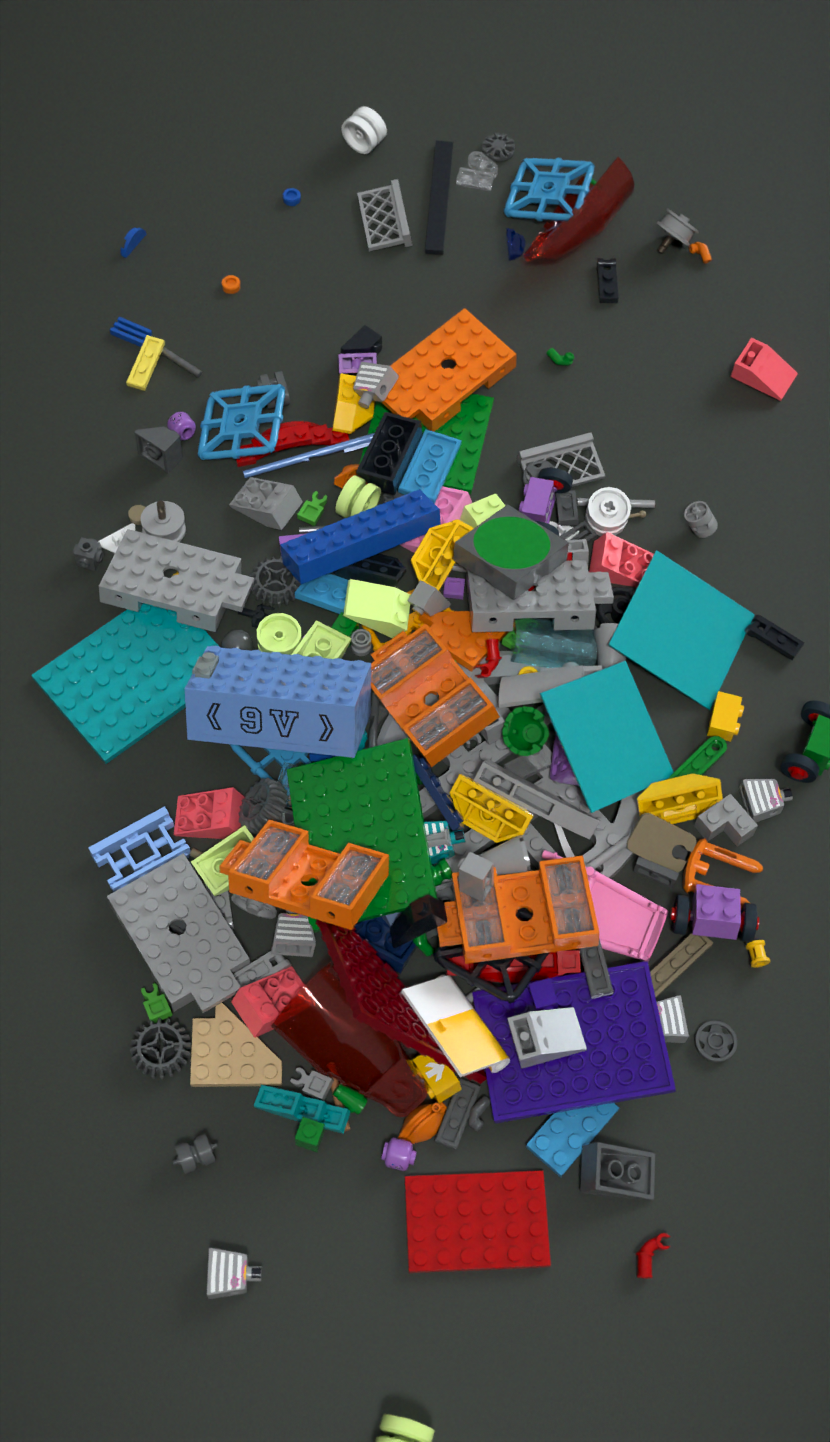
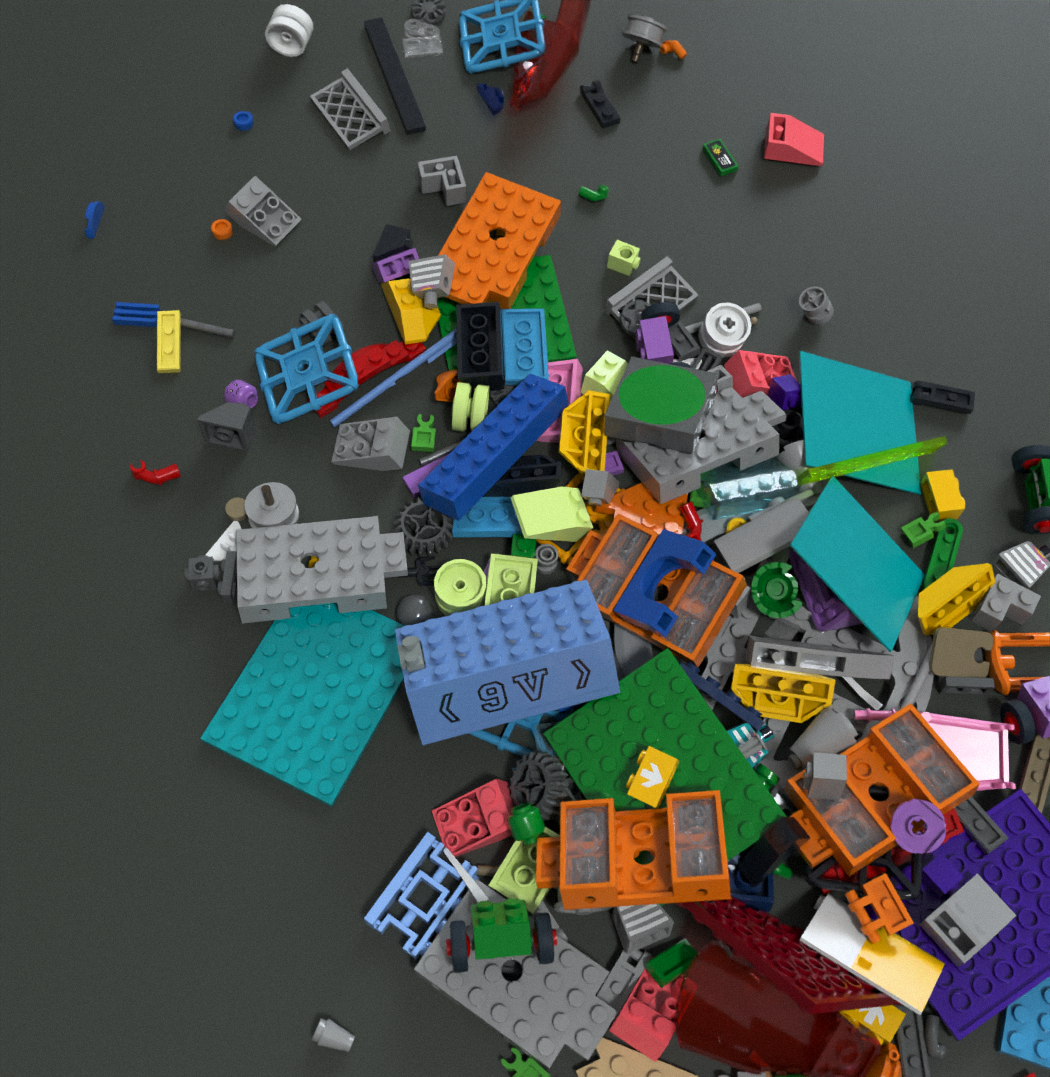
camera: 25 degrees left, 0 degrees up
(29, 920) = (332, 1036): none -> light grey cone
(86, 466) = (156, 476): none -> red piece
(101, 568) = (228, 586): none -> dark grey plate
(177, 853) = (478, 893): none -> white sticker
(178, 890) = (499, 932): none -> green brick
(236, 826) = (526, 823): none -> green head
(269, 281) = (261, 212): none -> light grey slope
(298, 974) = (671, 963): none -> green tile
(347, 828) = (652, 777): none -> yellow brick
(433, 299) = (443, 176): none -> light grey brick
(445, 669) = (667, 554): none -> blue arch
(481, 994) = (886, 905): none -> orange plate
(545, 949) = (933, 823): none -> medium lavender plate
(553, 415) = (623, 258): none -> yellowish green brick
(629, 580) = (785, 392): none -> dark purple brick
(671, 662) = (871, 460): none -> clear neon green tile
(688, 736) = (921, 531): none -> bright green plate
(691, 362) = (720, 157): none -> tile

